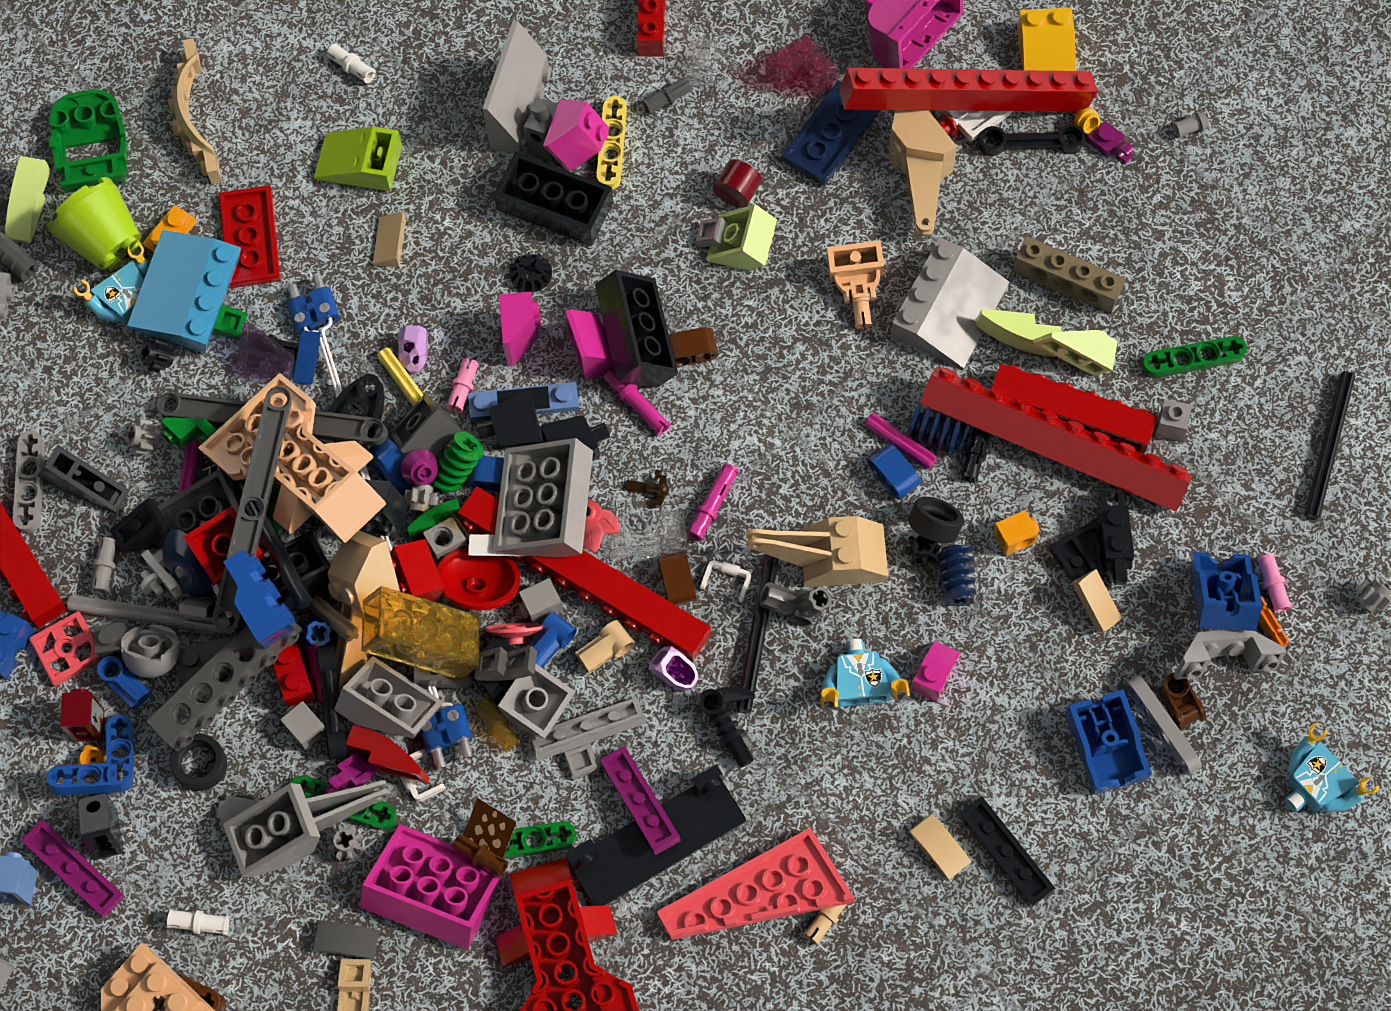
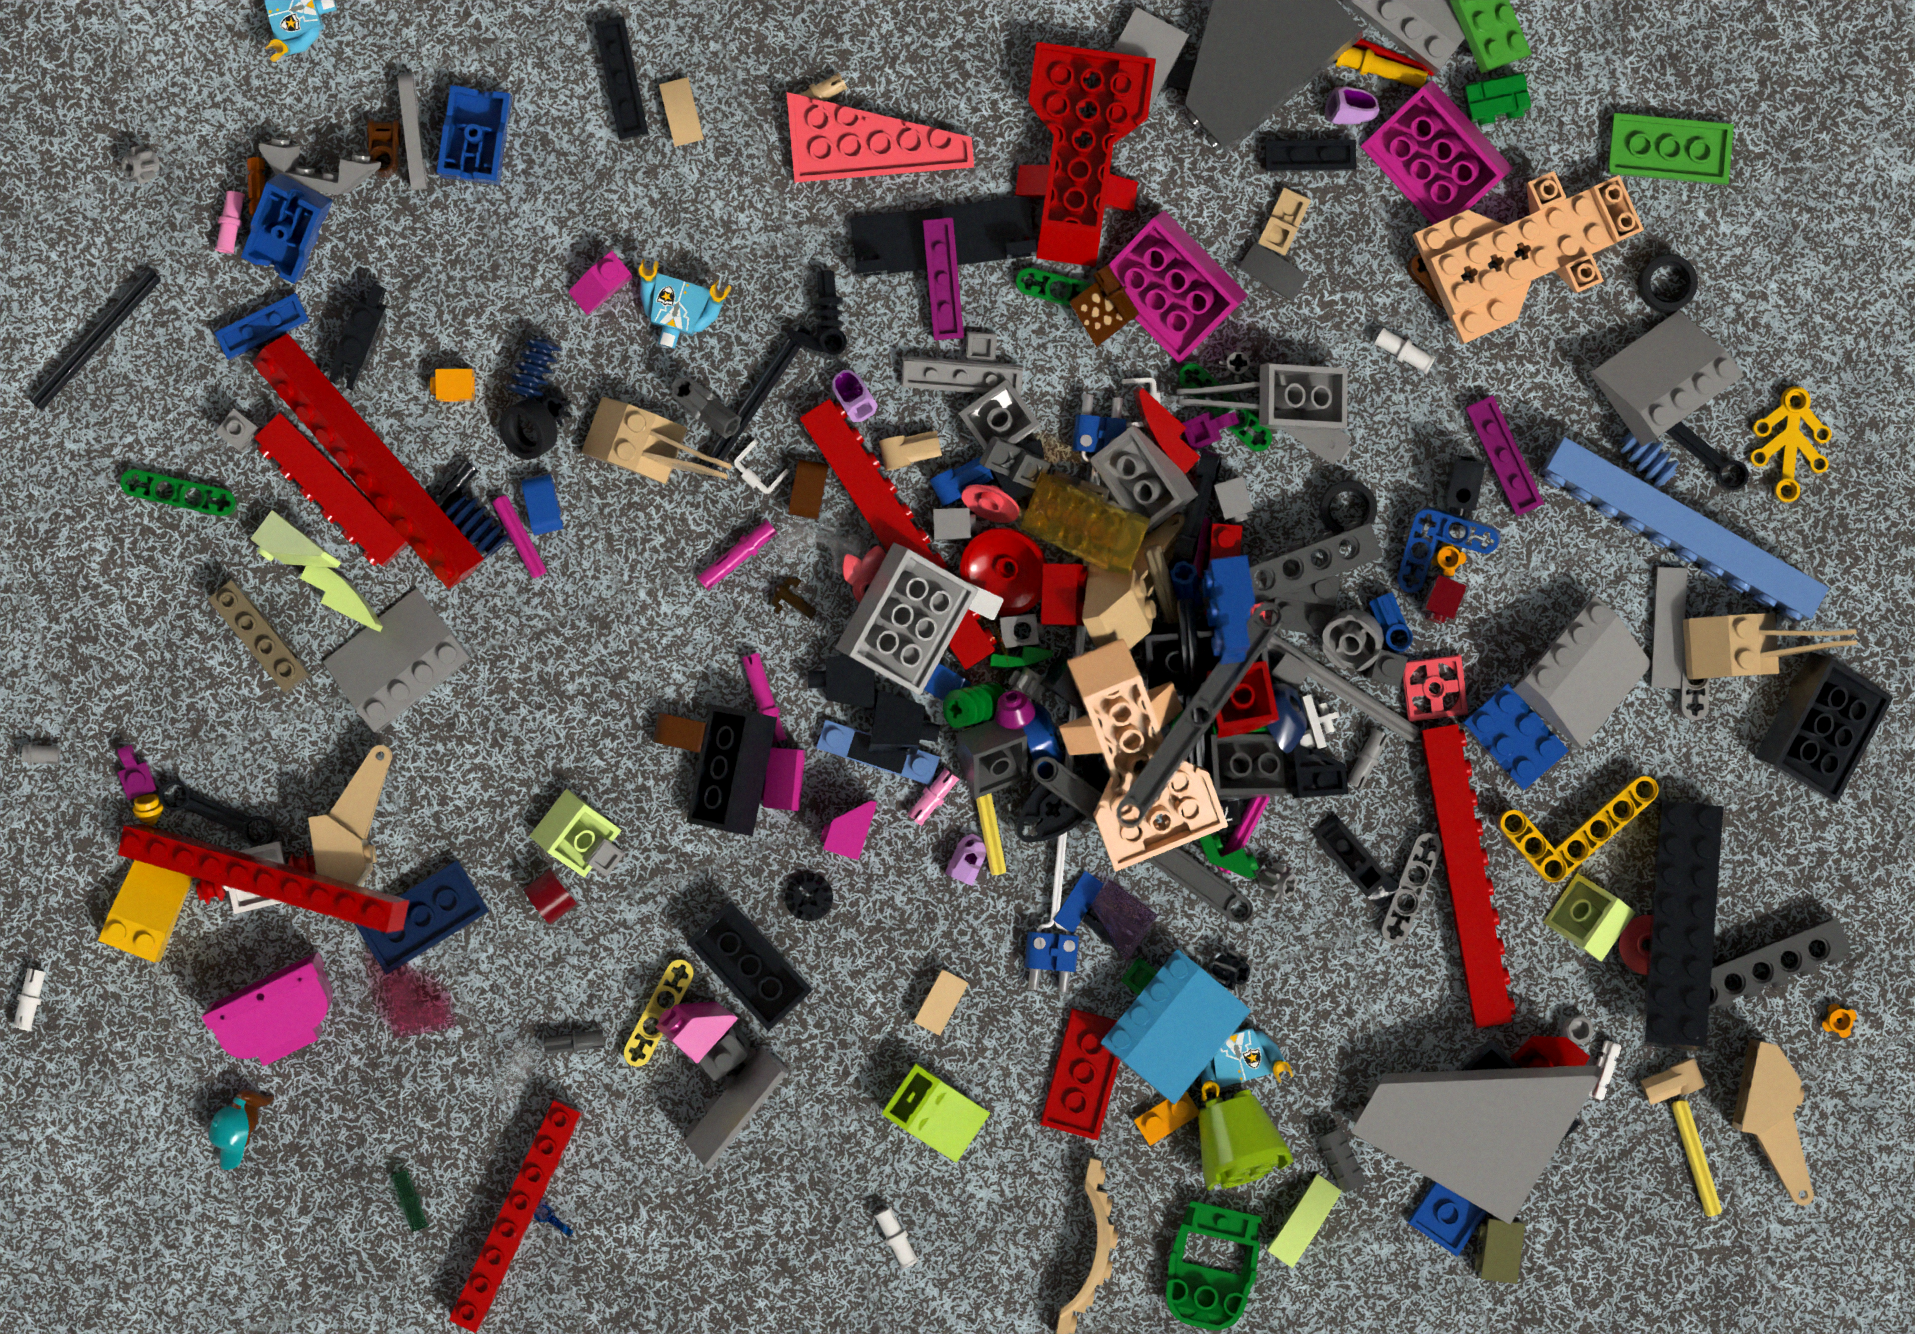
camera: 160 degrees left, 20 degrees up
(496, 725) = (1047, 417): clear yellow axle -> none
(856, 271) = (476, 738): light nougat brick -> none
(1079, 552) = (404, 333): black wing -> none
(1096, 601) = (411, 279): tan slope -> none
(1200, 511) = (262, 326): none -> blue plate

